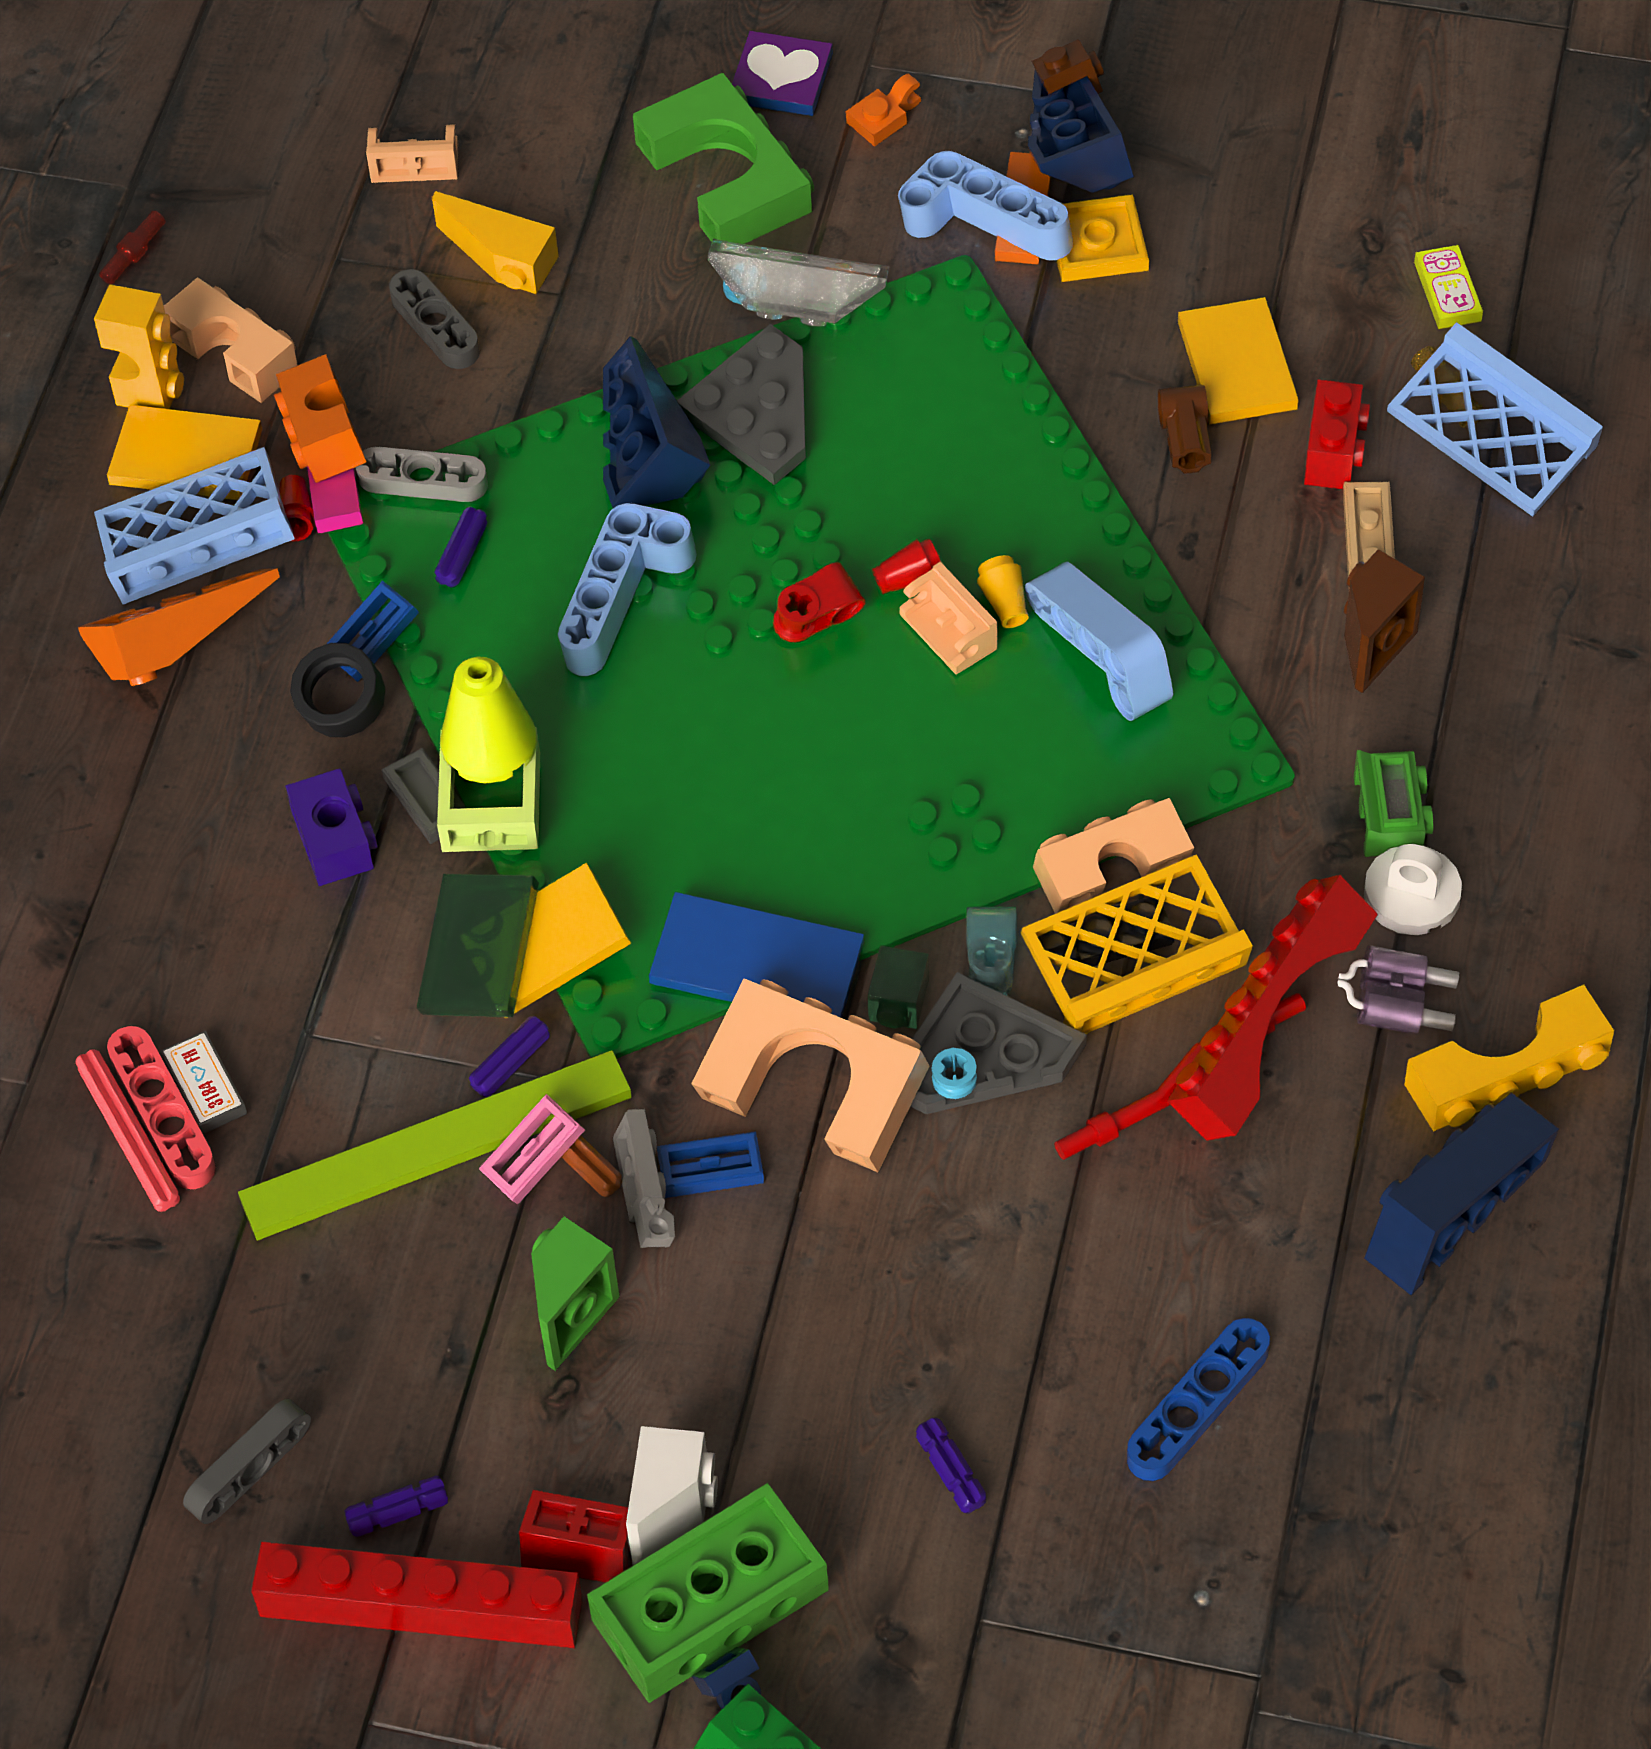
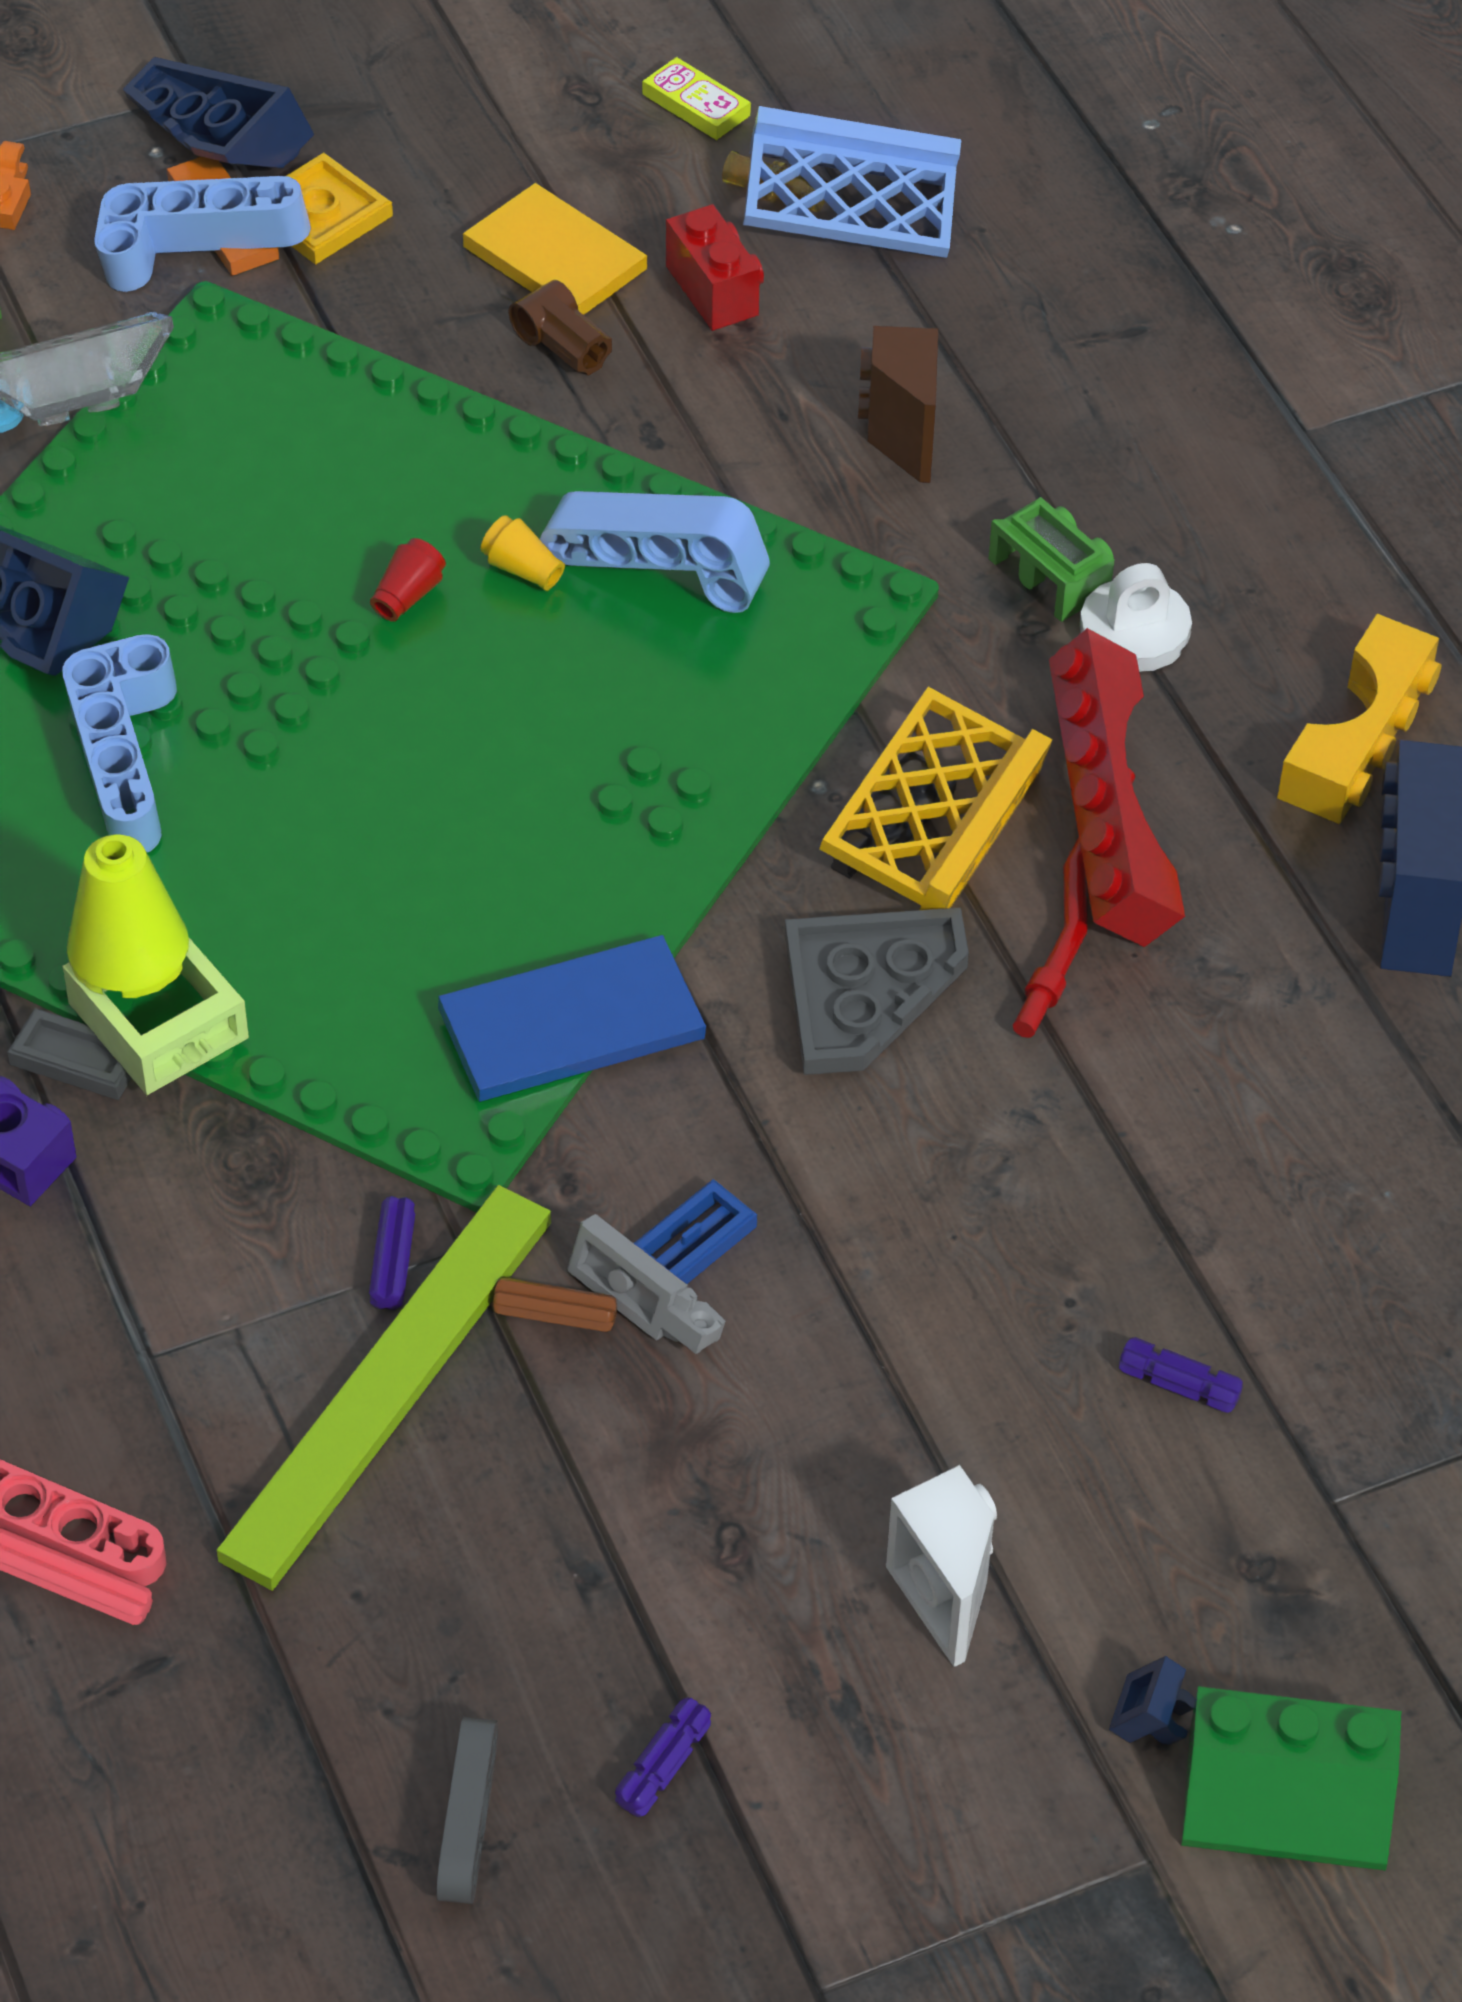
camera: 40 degrees left, 5 degrees down
(203, 1082) = (79, 1461): white tile -> none
(417, 1594) = (770, 1825): red brick -> none
(477, 945) = (272, 1160): clear green tile -> none
(546, 1158) = (493, 1375): bright pink tile -> none
(568, 934) = (340, 1117): yellow tile -> none
(572, 1286) = (665, 1425): bright green slope -> none
(574, 1536) = (886, 1665): red hinge -> none
(704, 1560) = (1069, 1633): bright green brick -> none
(755, 404) = (116, 508): dark grey plate -> none
(769, 1023) = (798, 1037): light nougat arch -> none
(823, 600) = (345, 657): red piece -> none
(898, 987) = (738, 965): clear green brick -> none
(949, 619) = (490, 604): light nougat hinge -> none
(957, 1087) = (872, 992): medium azure bush -> none
(991, 946) = (792, 877): clear light blue piece -> none
(1067, 65) = (162, 65): reddish brown bracket -> none
(1147, 836) = (860, 704): light nougat arch -> none
(1193, 1395) = (1358, 1176): blue beam -> none
(1367, 521) = (814, 344): tan tile -> none
(1394, 990) = (1203, 717): clear purple piece -> none

